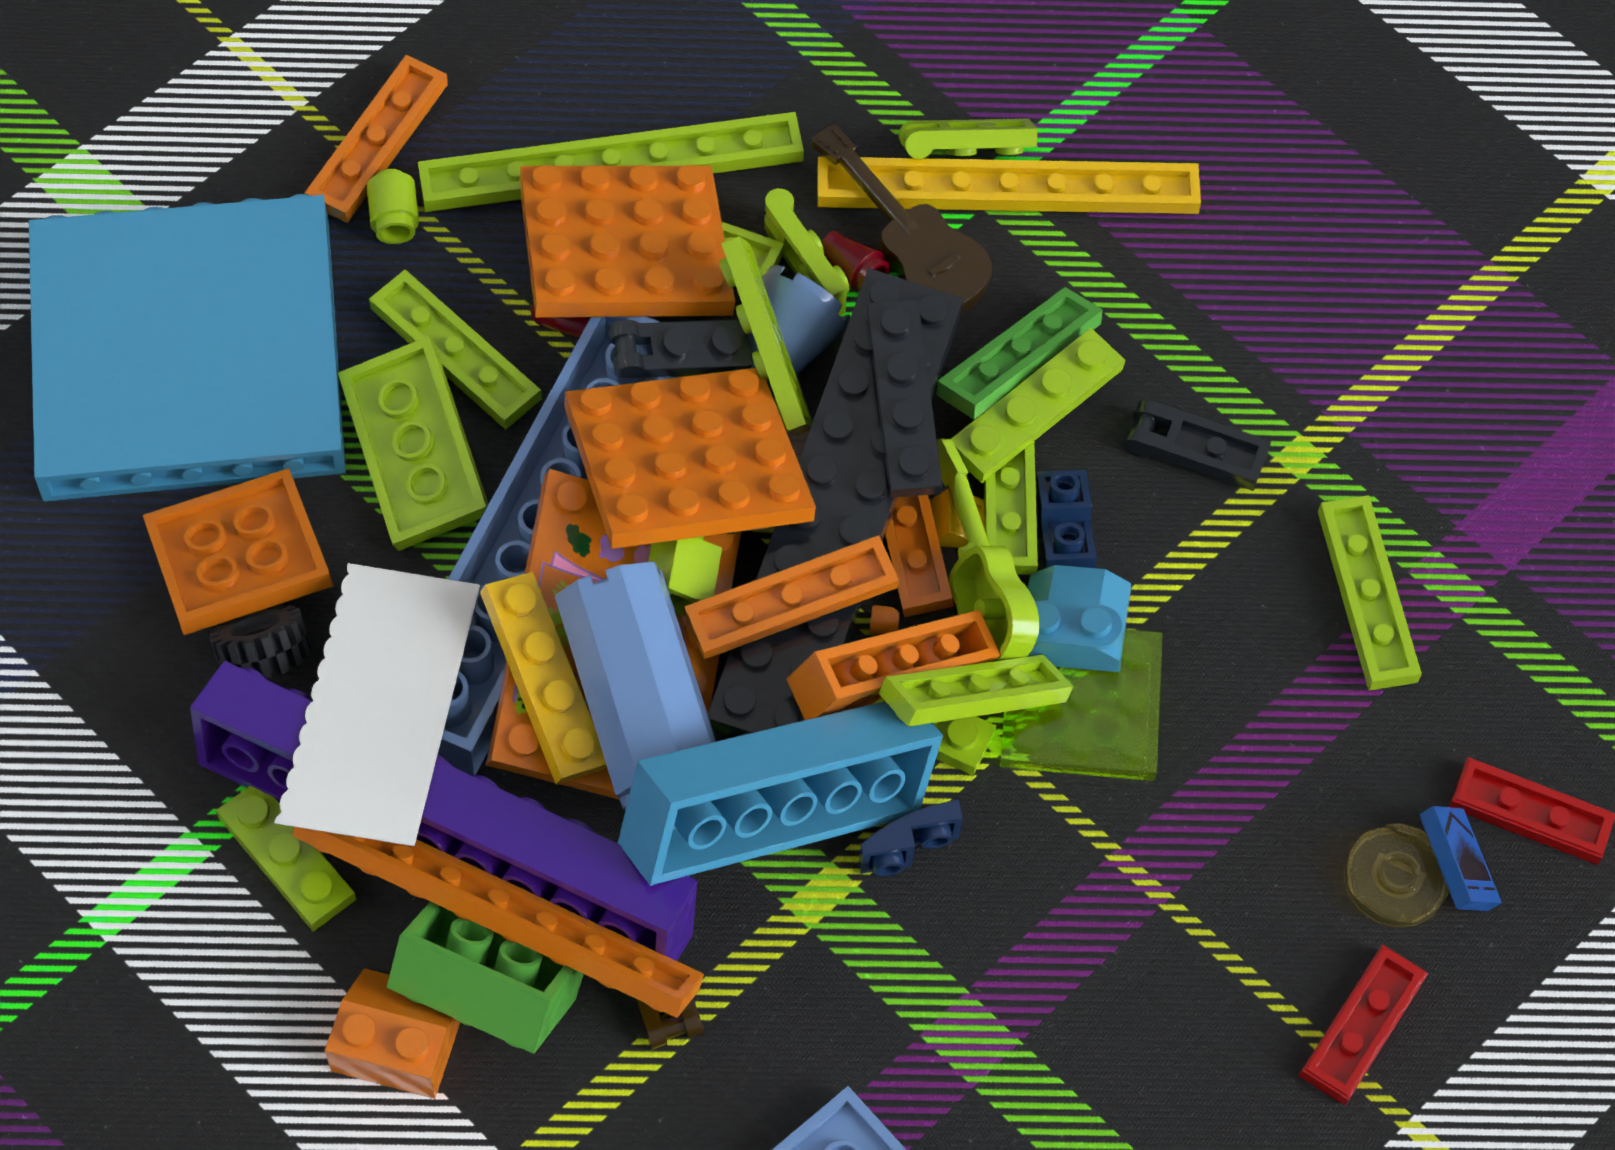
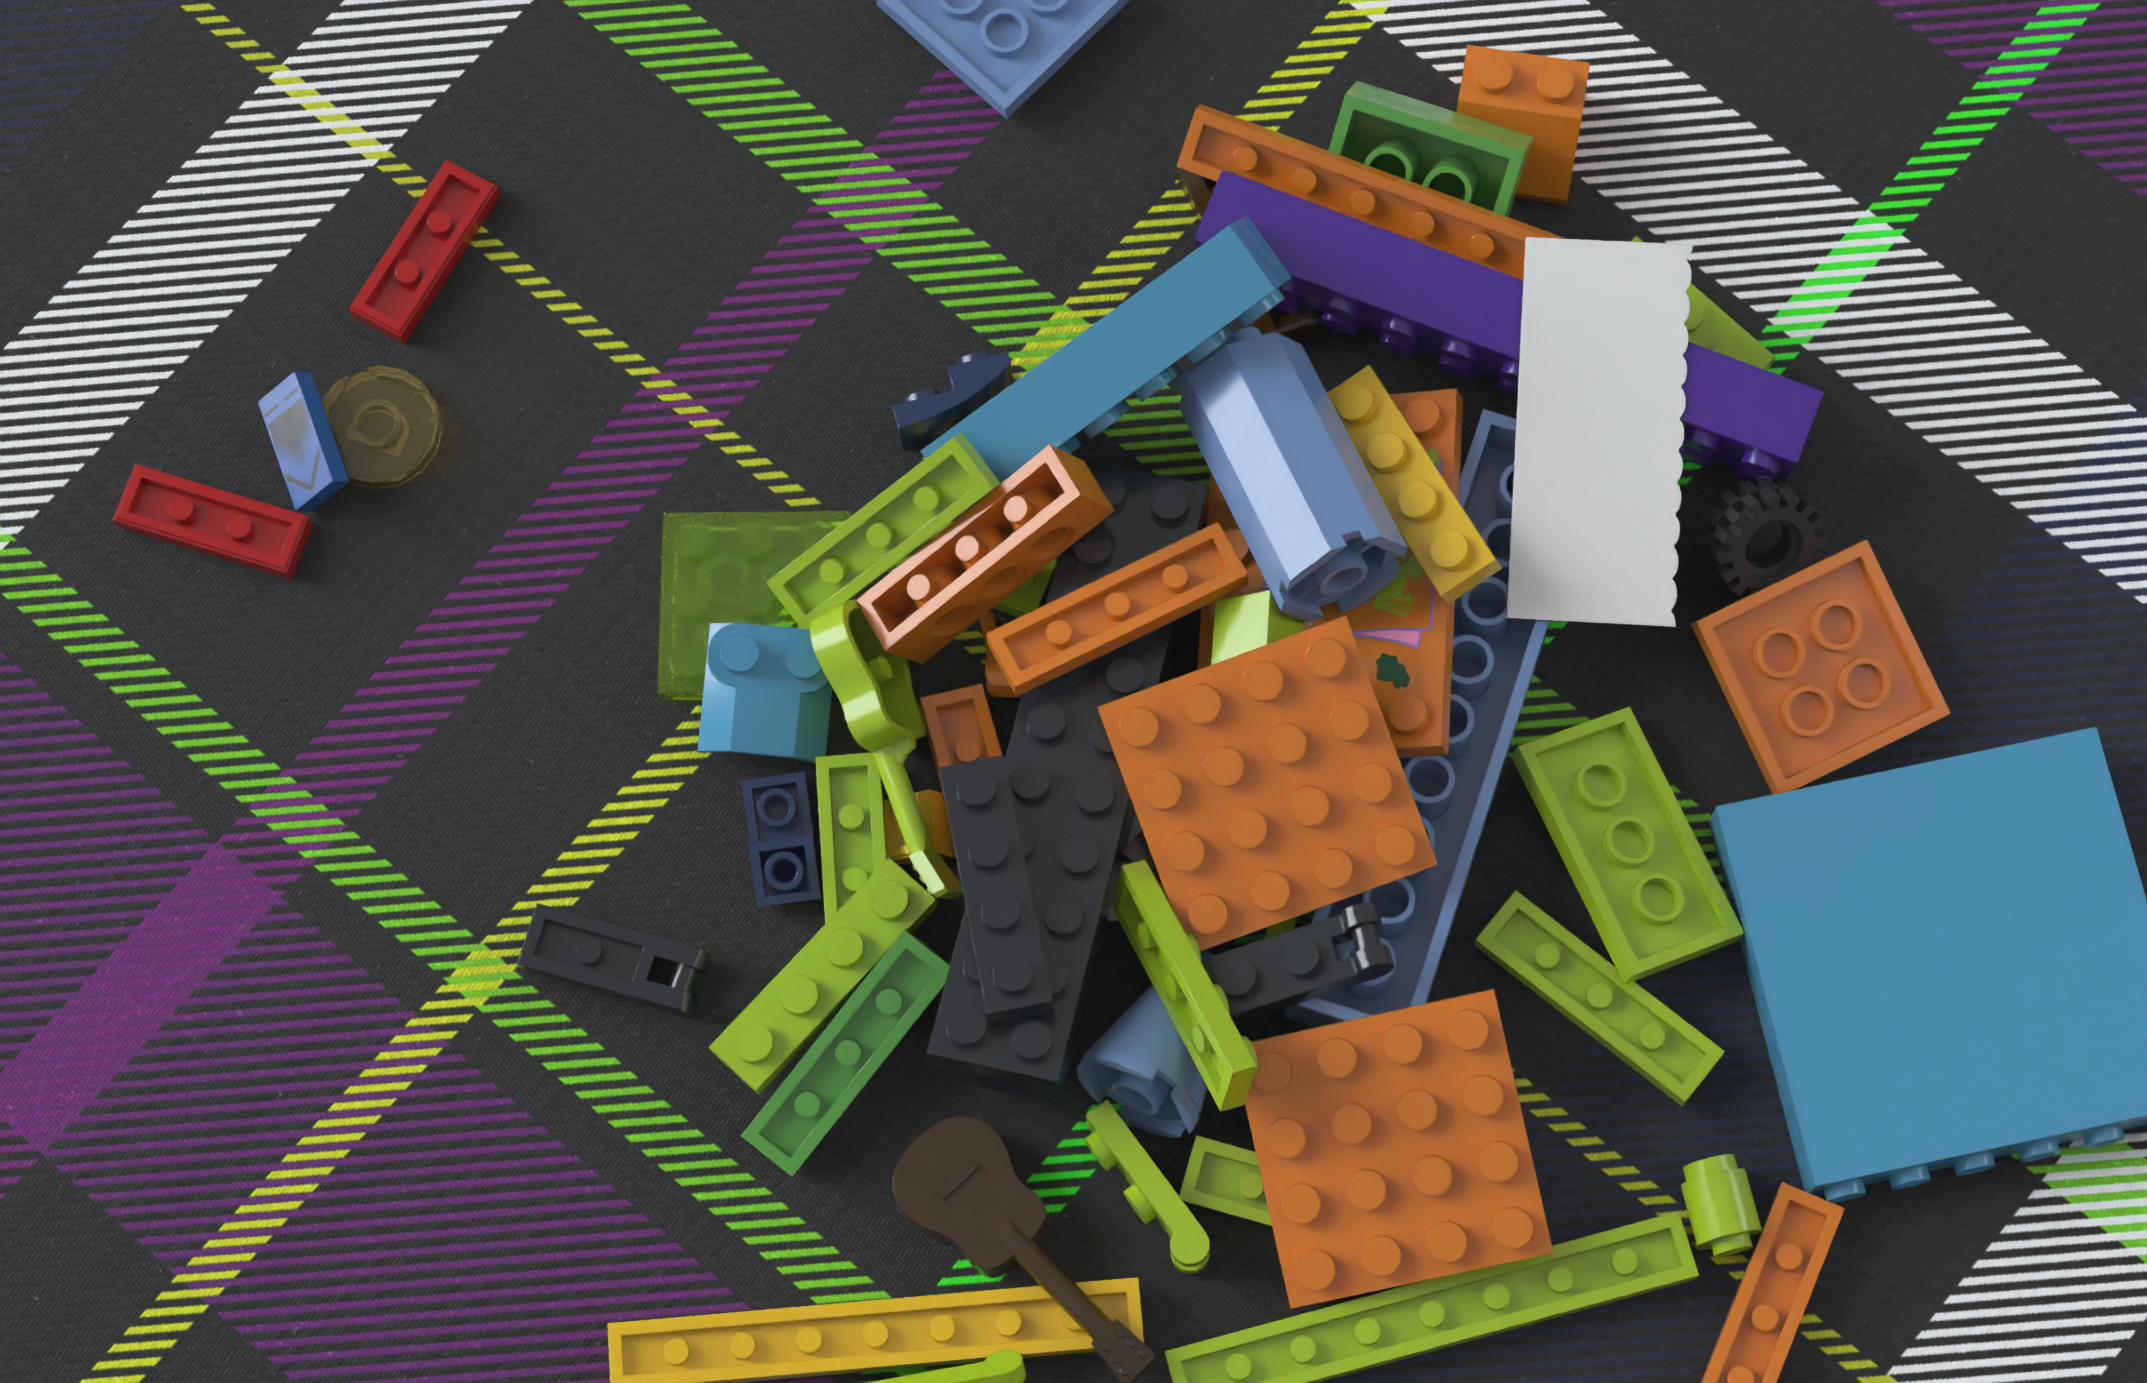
camera: 175 degrees left, 10 degrees up
(853, 258) = (1080, 1186): dark red cone -> none
(1369, 593) = (397, 775): lime plate -> none

